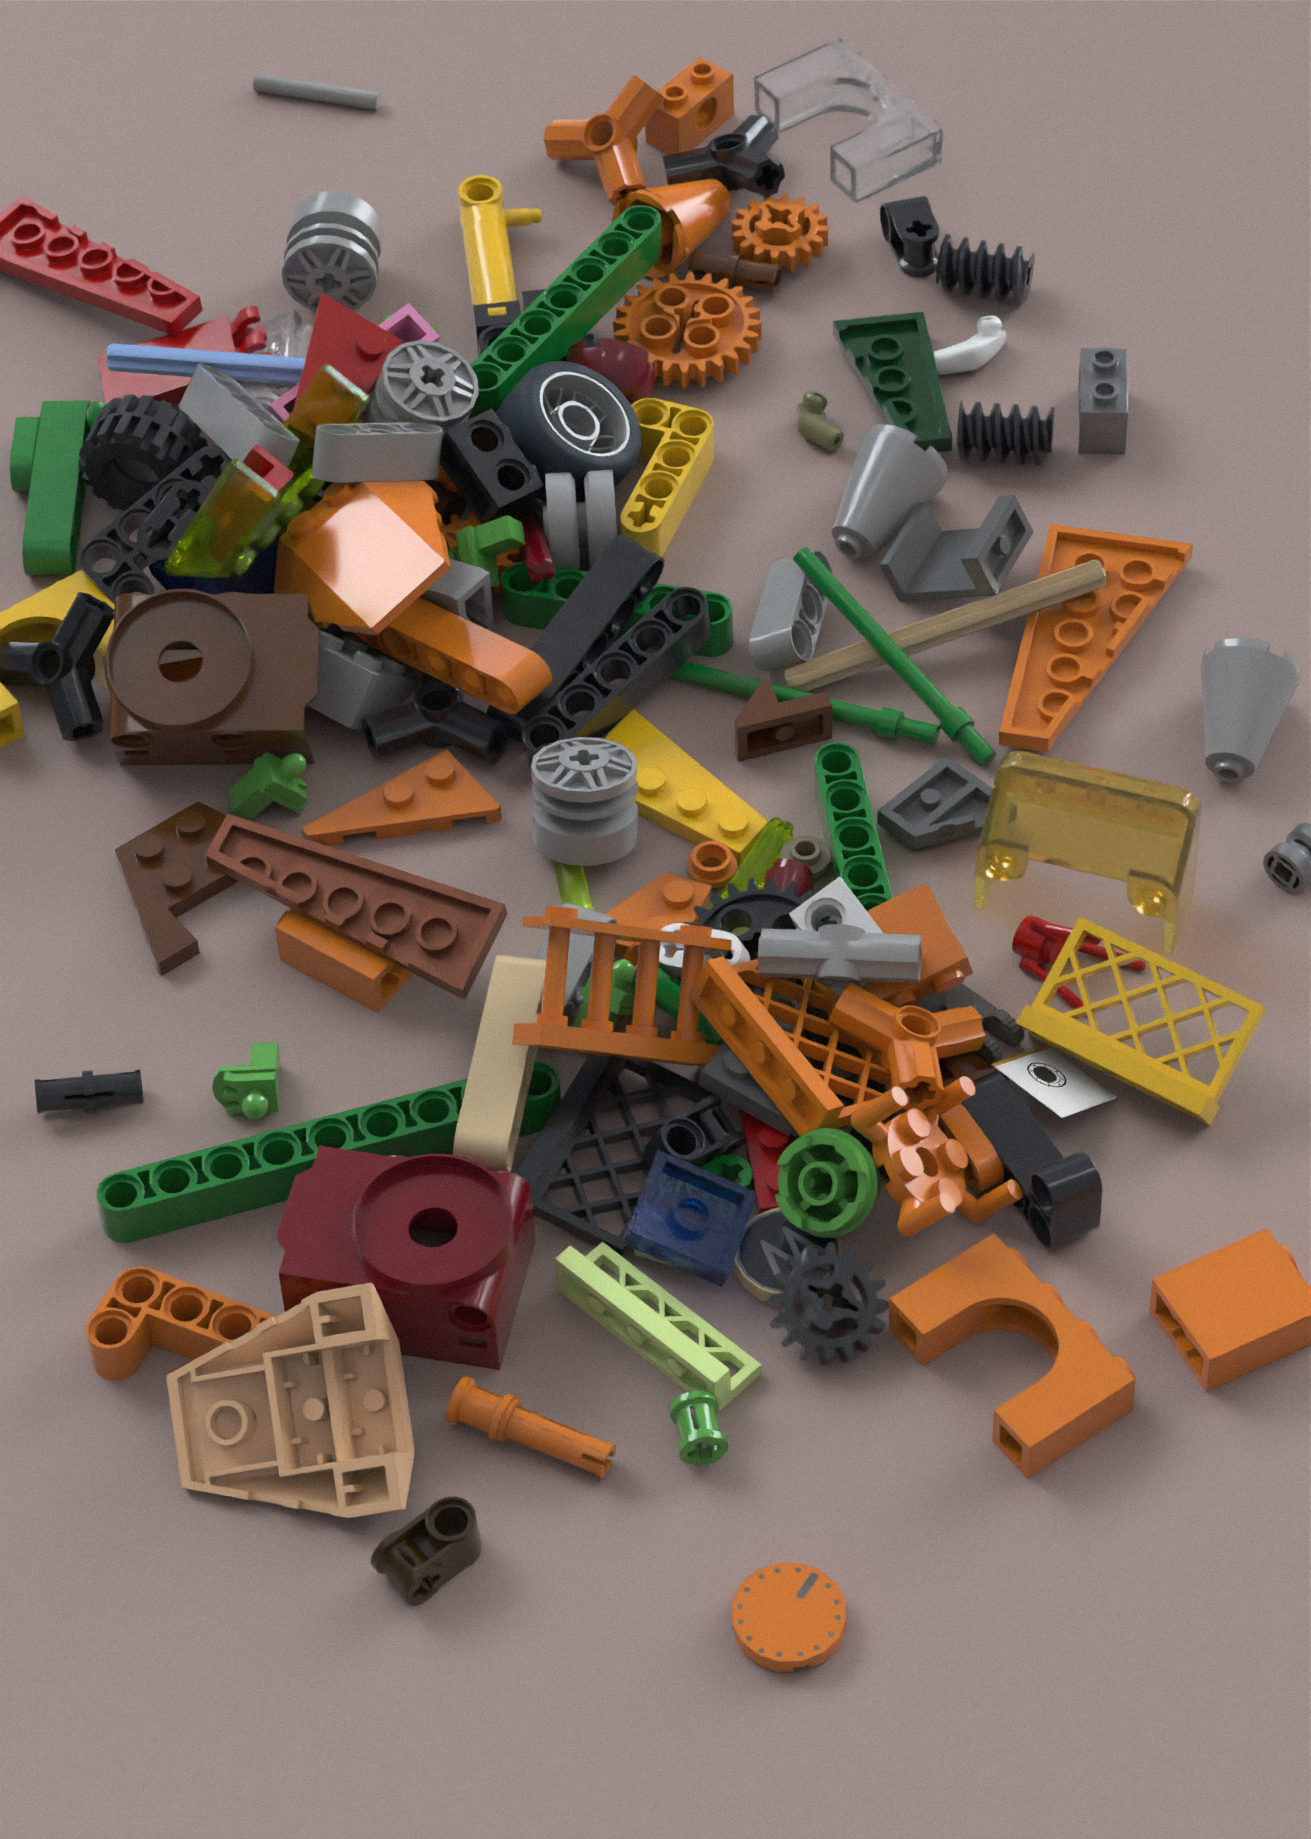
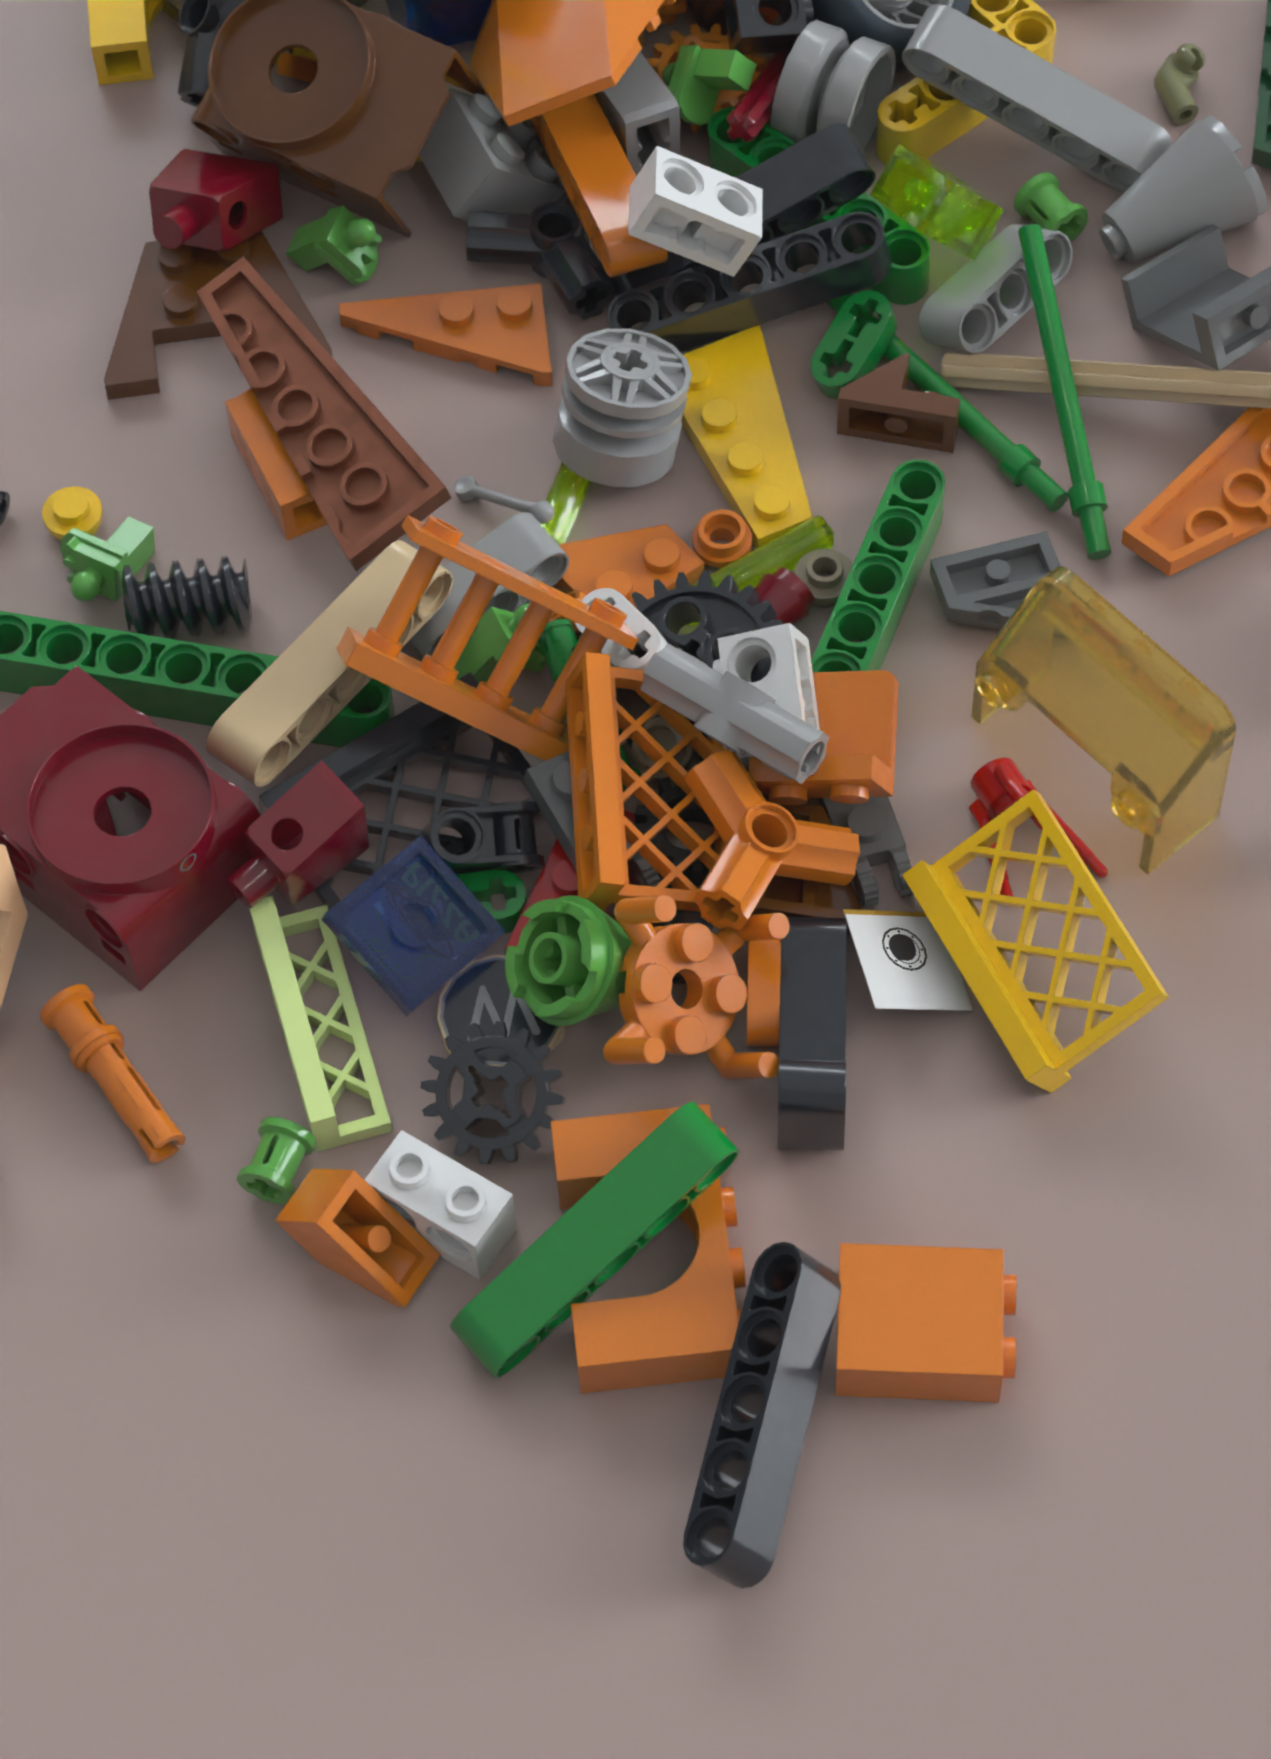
camera: 30 degrees right, 10 degrees up
(154, 794) = (213, 200): none -> dark red torso
(198, 1062) = (72, 508): none -> yellow plate
(340, 1077) = (187, 599): none -> black piece
(563, 634) = (695, 211): none -> white brick
(571, 896) = (468, 489): none -> light grey hinge
(573, 1190) = (302, 839): none -> dark red torso
(715, 565) = (937, 202): none -> clear neon green brick
(724, 692) = (848, 342): none -> green beam
(733, 468) = (1033, 97): none -> light grey beam
(785, 540) = (1049, 207): none -> bright green bush
(788, 1617) = (229, 1416): orange tile -> none
(795, 1445) = (358, 1234): none -> orange slope
(844, 1396) = (445, 1203): none -> white brick
(980, 1359) = (594, 1239): none -> green beam
(1198, 1428) = (762, 1416): none -> black beam

